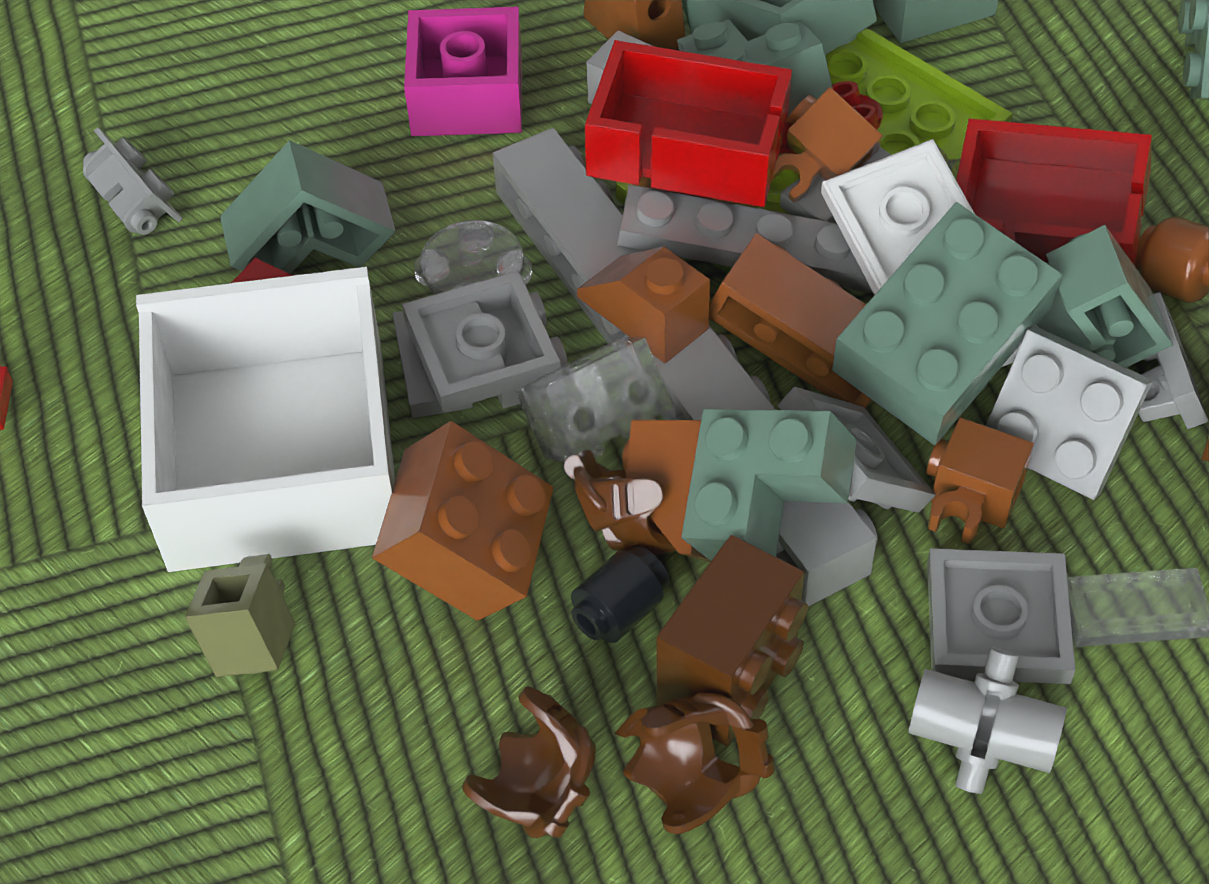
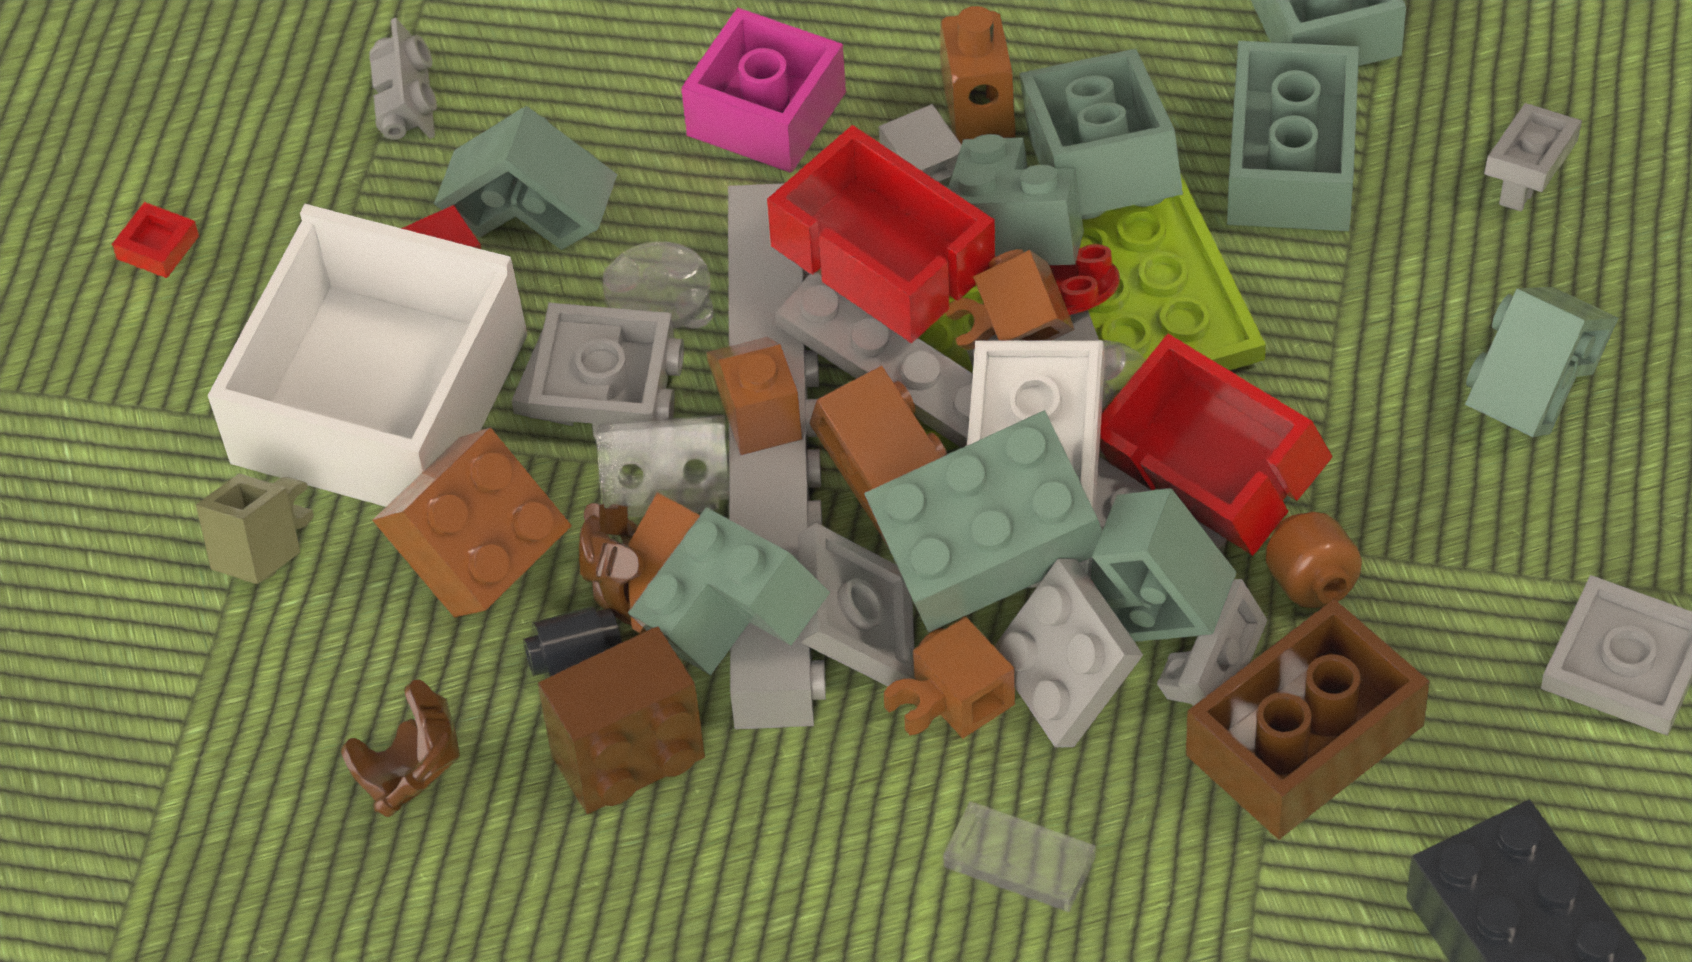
camera: 30 degrees right, 0 degrees up
(680, 759) = (535, 803): reddish brown helmet -> none
(987, 720) = (795, 884): light grey pin -> none
(1000, 603) = (884, 807): light grey plate -> none

